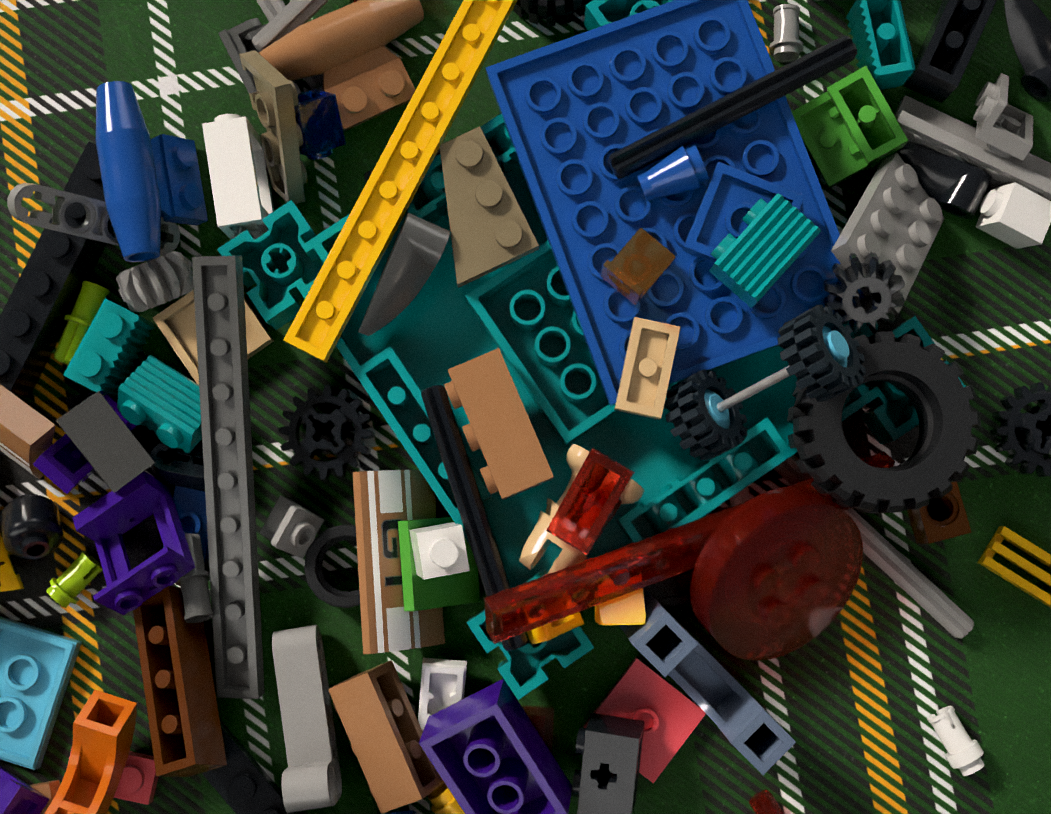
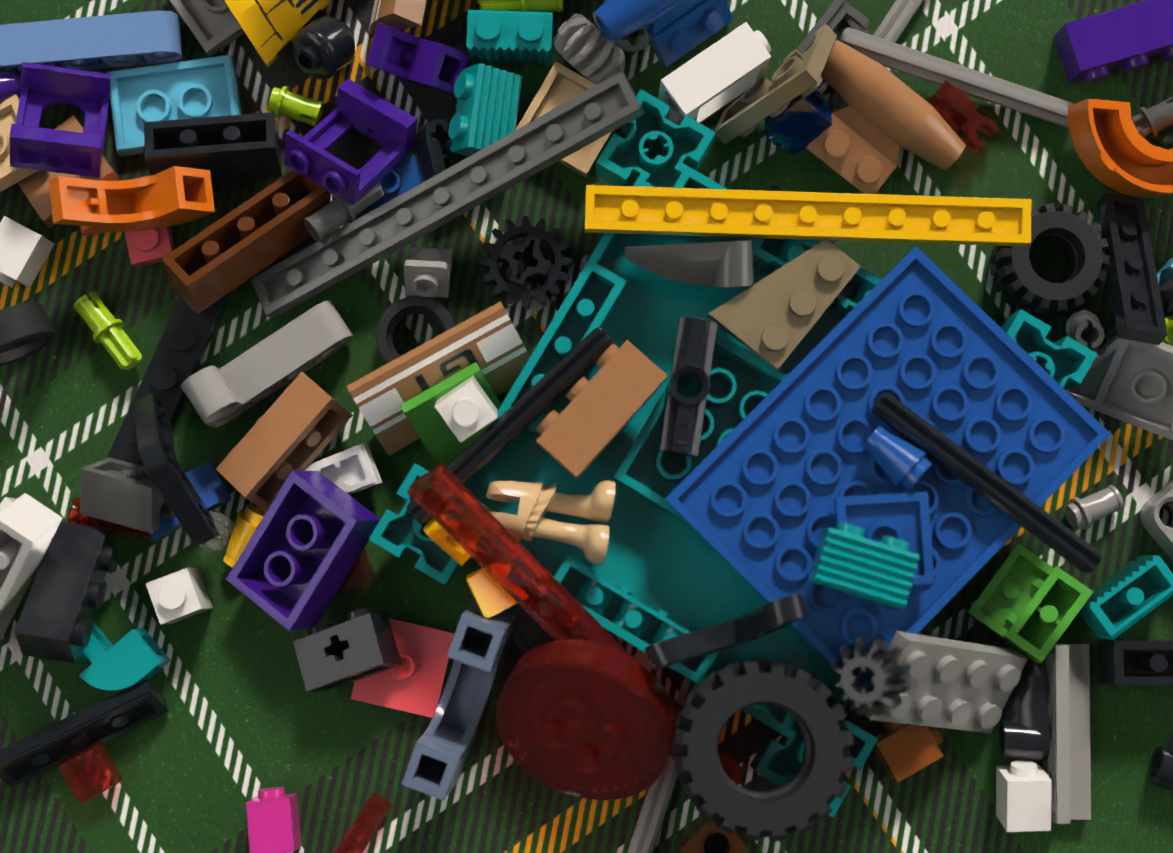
camera: 60 degrees right, 0 degrees up
(78, 663) = (226, 145): none -> black brick
(105, 441) = (426, 75): dark grey hinge -> none
(492, 318) = (691, 358): none -> black piece
(591, 501) = (569, 519): clear red slope -> none
(637, 266) = (799, 464): clear orange bracket -> none
(647, 368) = (711, 514): tan plate -> none
(762, 408) = (719, 637): none -> black beam
(817, 354) = (788, 655): black axle -> none
(930, 297) = (907, 748): none -> dark orange brick
(1001, 125) = (1103, 744): light grey bracket -> none

